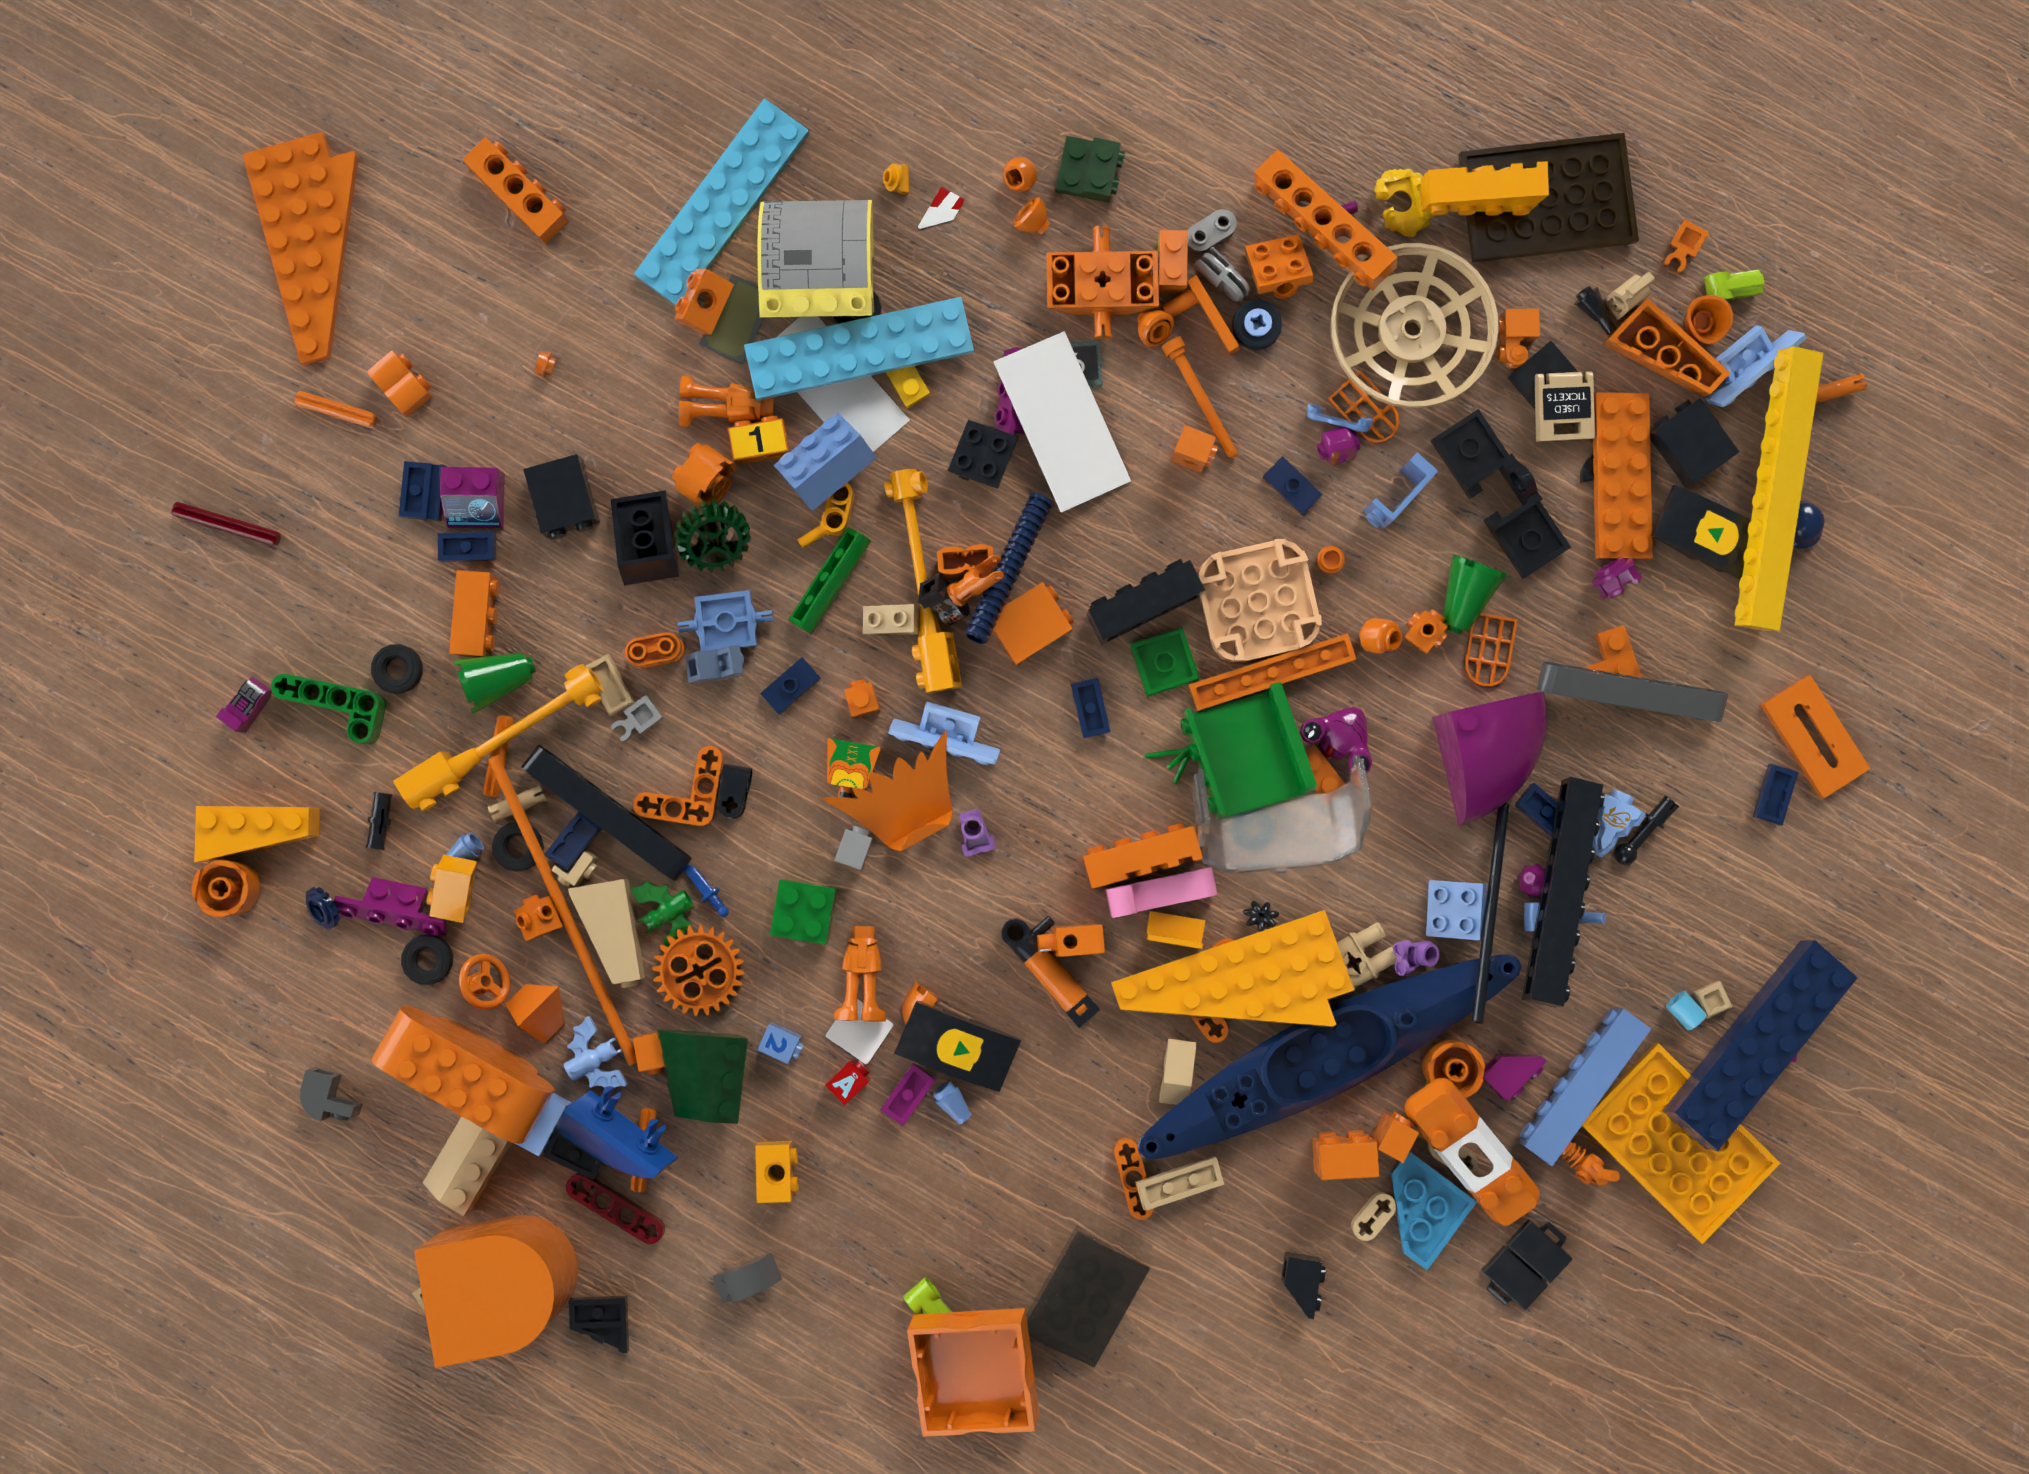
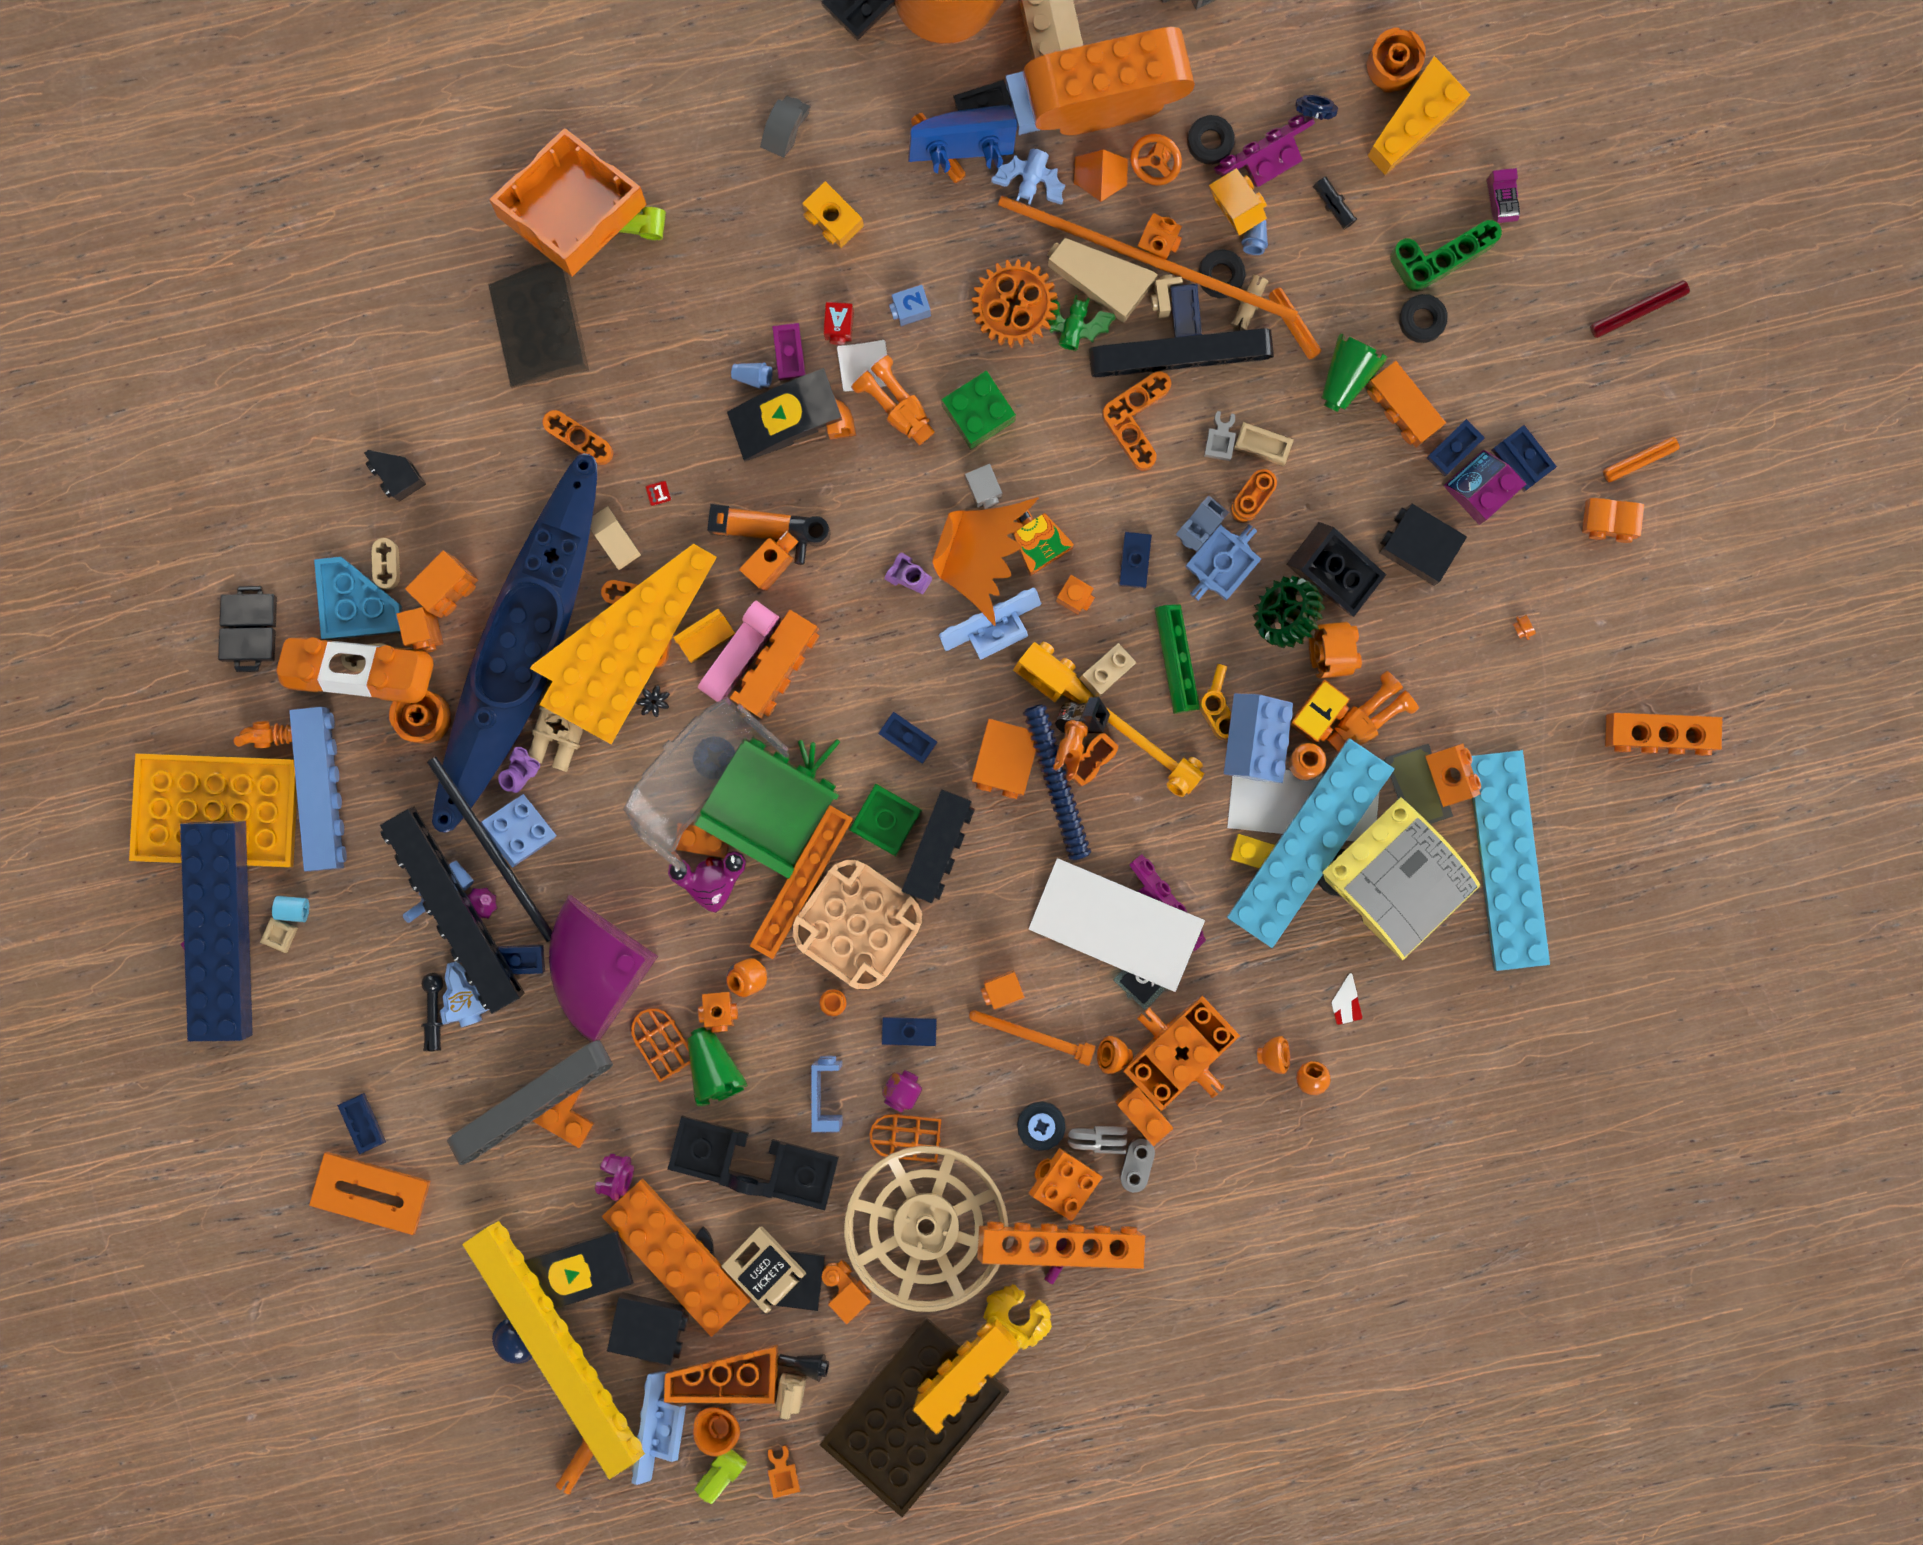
camera: 145 degrees right, 0 degrees up
(305, 219) = (1795, 577): orange wing -> none
(444, 772) = (1320, 277): light orange bar -> none
(618, 1203) = (919, 85): dark red beam -> none
(649, 1053) = (994, 218): orange brick -> none
(704, 1073) = (943, 235): dark green wedge -> none
(707, 891) = (1058, 363): blue piece -> none
(735, 784) = (1109, 453): black piece -> none
(804, 411) = (1307, 761): none -> orange head
(897, 178) = (1399, 994): light orange plate -> none
(982, 454) = (1151, 848): black hinge -> none
(1089, 168) = (1267, 1130): dark green plate -> none
(1110, 1077) = (658, 493): none -> red sticker
(1179, 1183) = (542, 462): tan plate -> none
(1198, 294) = (1103, 1108): orange piece -> none
(1314, 413) = (938, 1098): medium blue piece -> none
(1509, 1073) = (377, 751): magenta slope -> none

